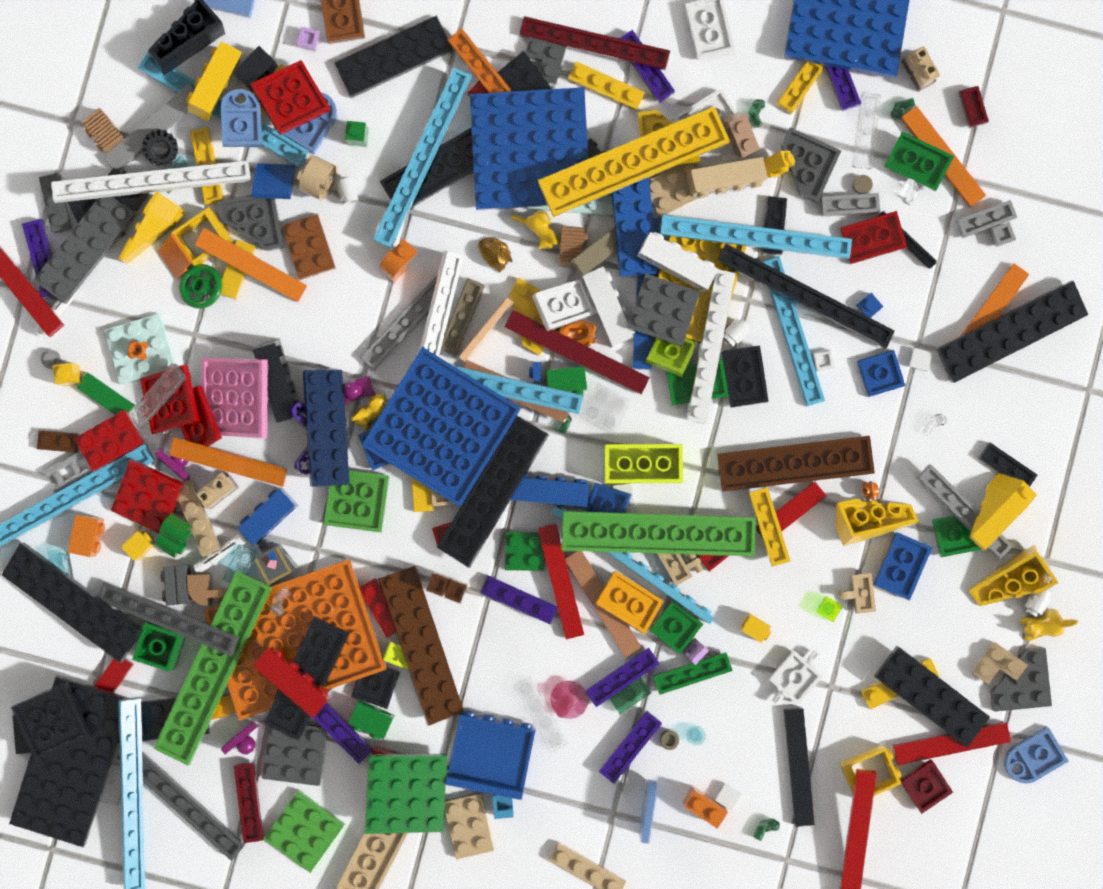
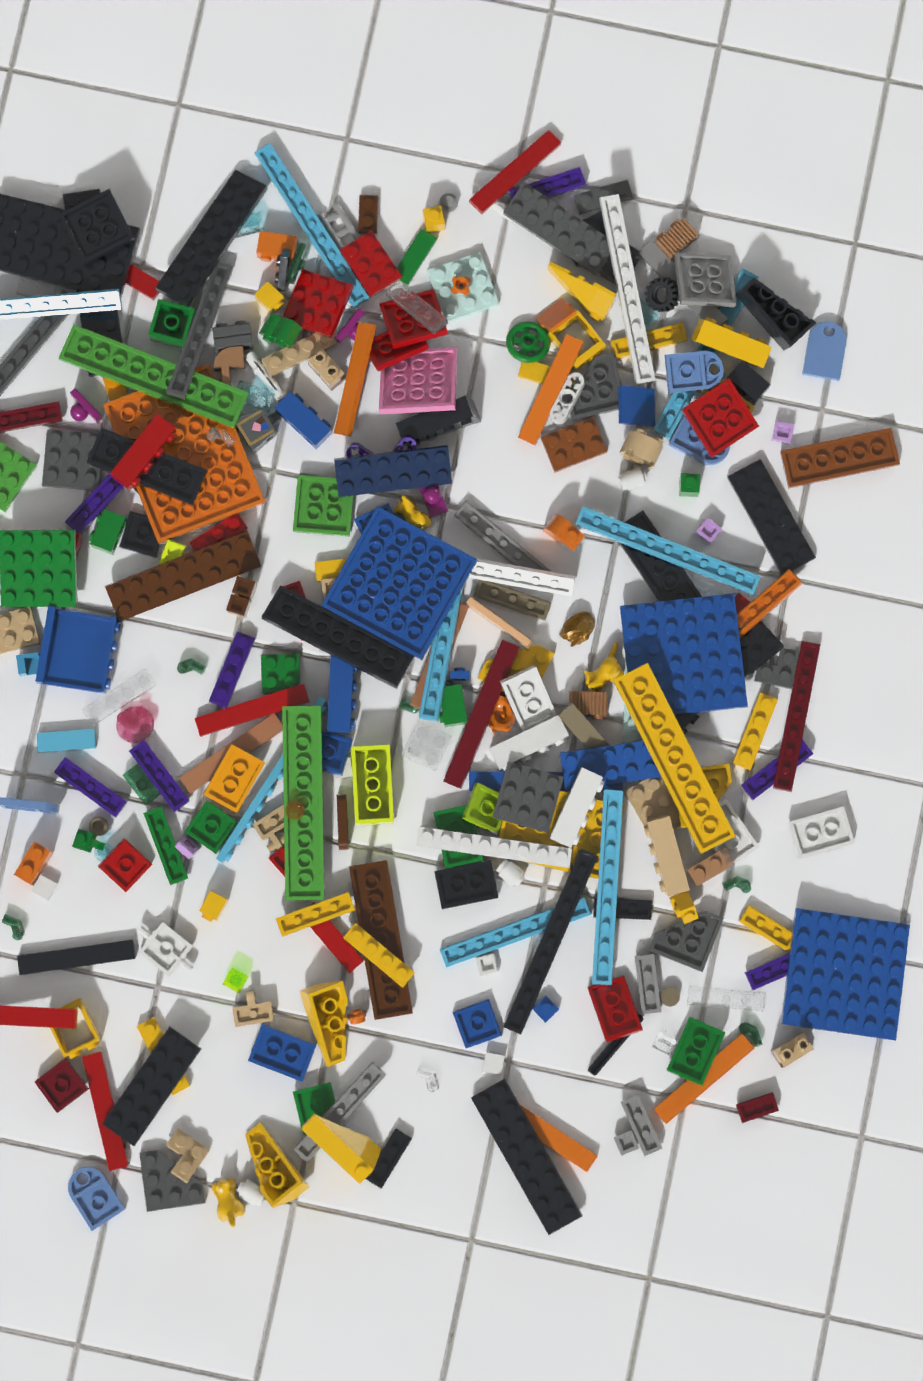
camera: 85 degrees right, 5 degrees down
(104, 515) = (297, 263): none -> clear green plate
(116, 531) = (283, 262): none -> black plate
(147, 103) = (705, 279): none -> light grey plate
(251, 237) = (568, 384): none -> white beam
(403, 118) = (708, 530): none -> lavender plate
(511, 641) = (190, 665): none -> clear green arm
(581, 769) = (66, 740): none -> medium azure tile
(668, 542) = (294, 810): none -> clear orange plate
(677, 496) = (342, 819): none -> reddish brown beam
(685, 752) = (86, 841): none -> green plate
(710, 715) = (124, 865): none -> red tile
(812, 465) = (379, 955): none -> yellow plate

